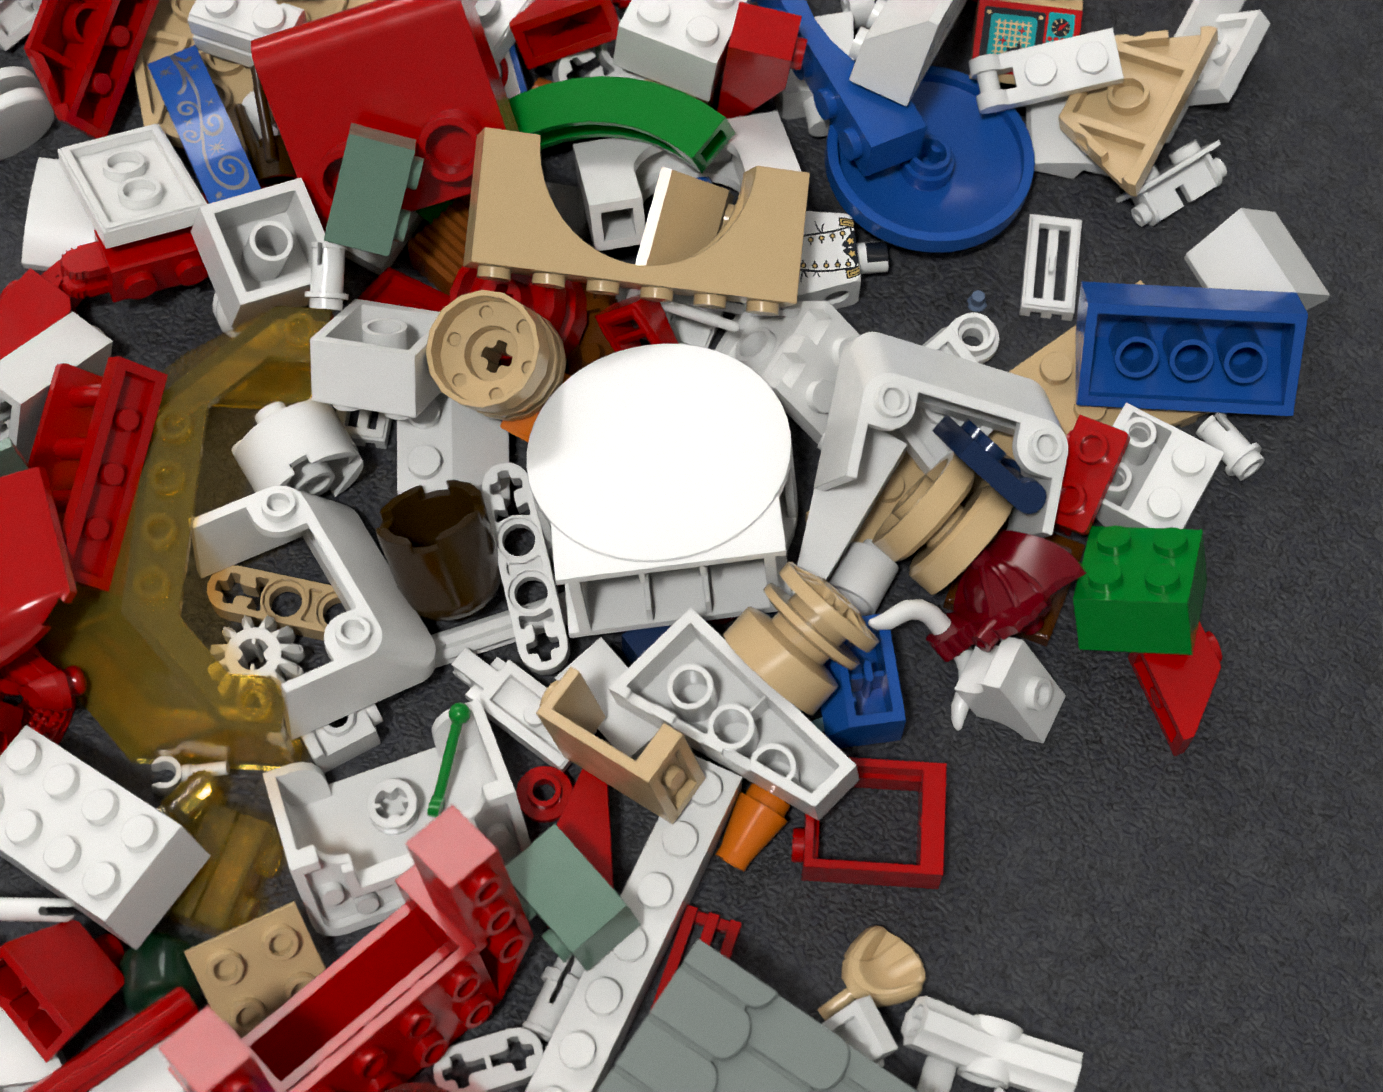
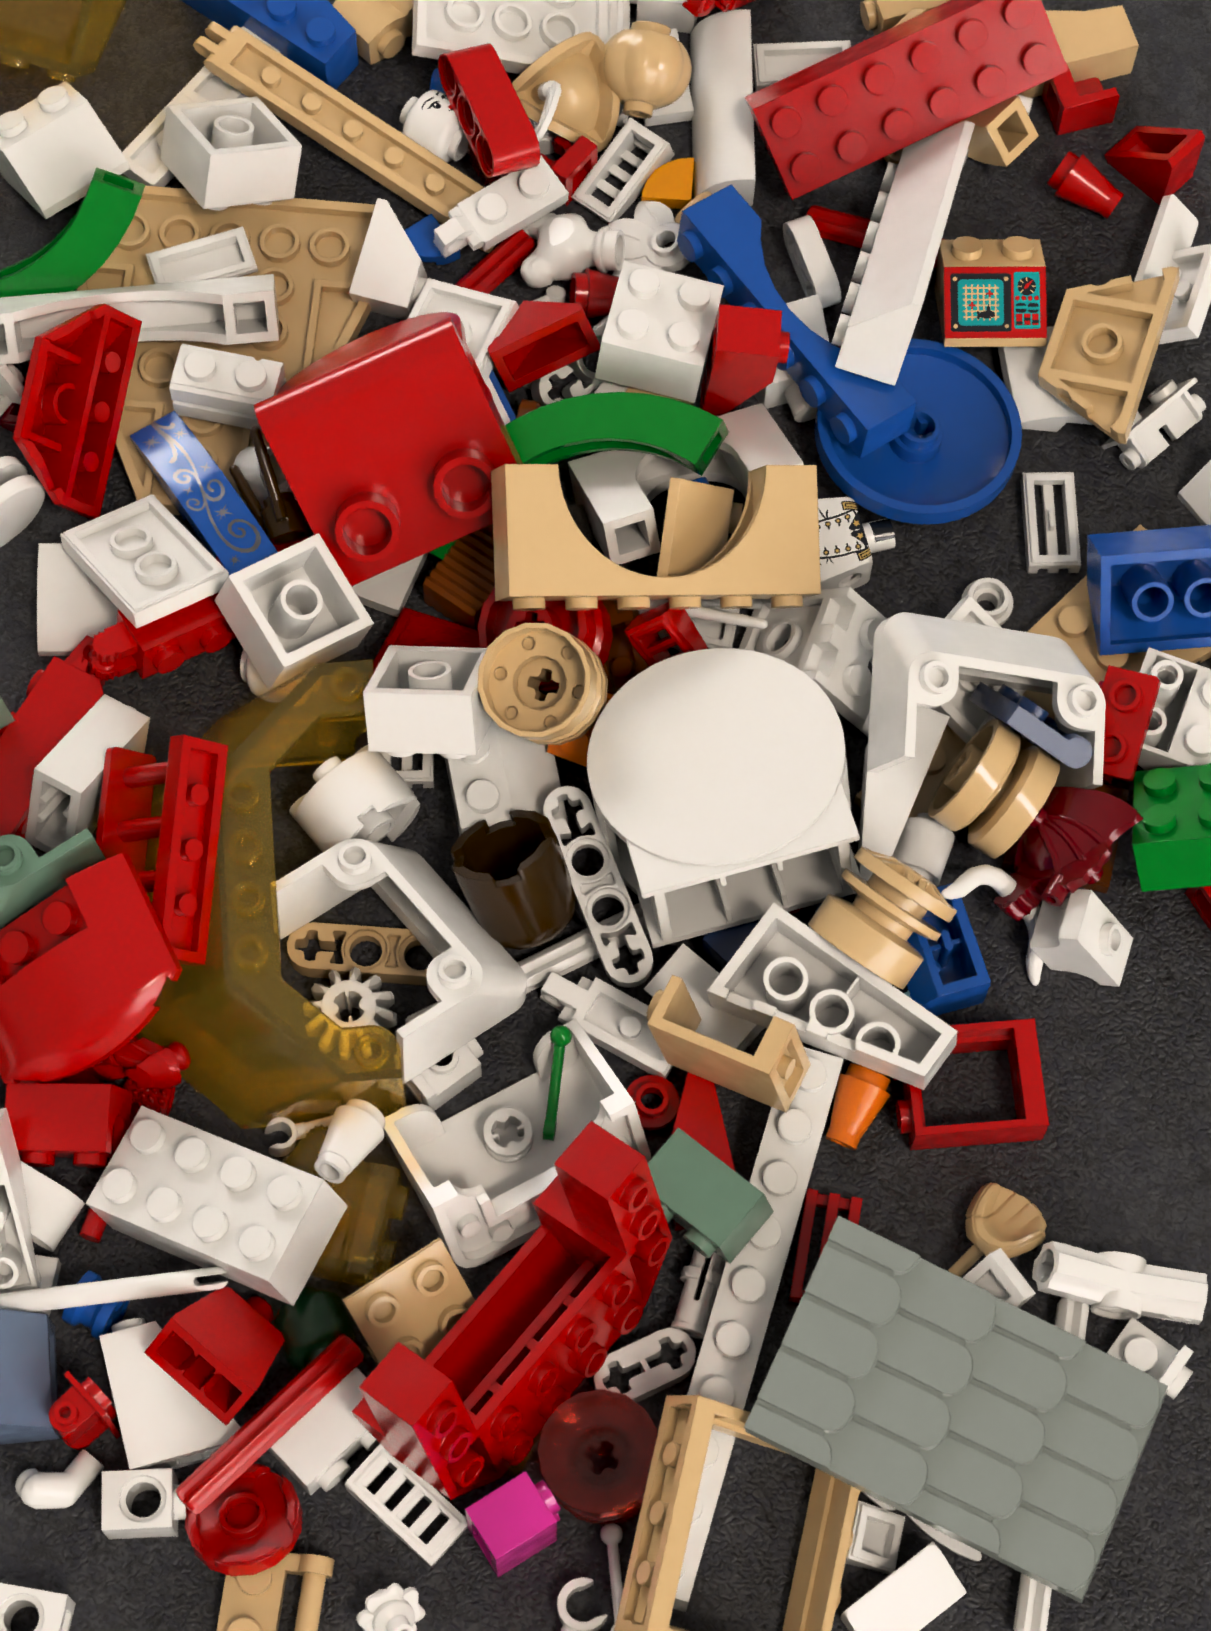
camera: 10 degrees left, 0 degrees up
(226, 787) = (349, 1139): none -> white cone
(327, 276) = (362, 627): white pin -> none
(372, 189) = (396, 538): sand green brick -> none
(977, 301) = (984, 565): sand blue piece -> none
(1047, 71) = (1022, 330): white plate -> none

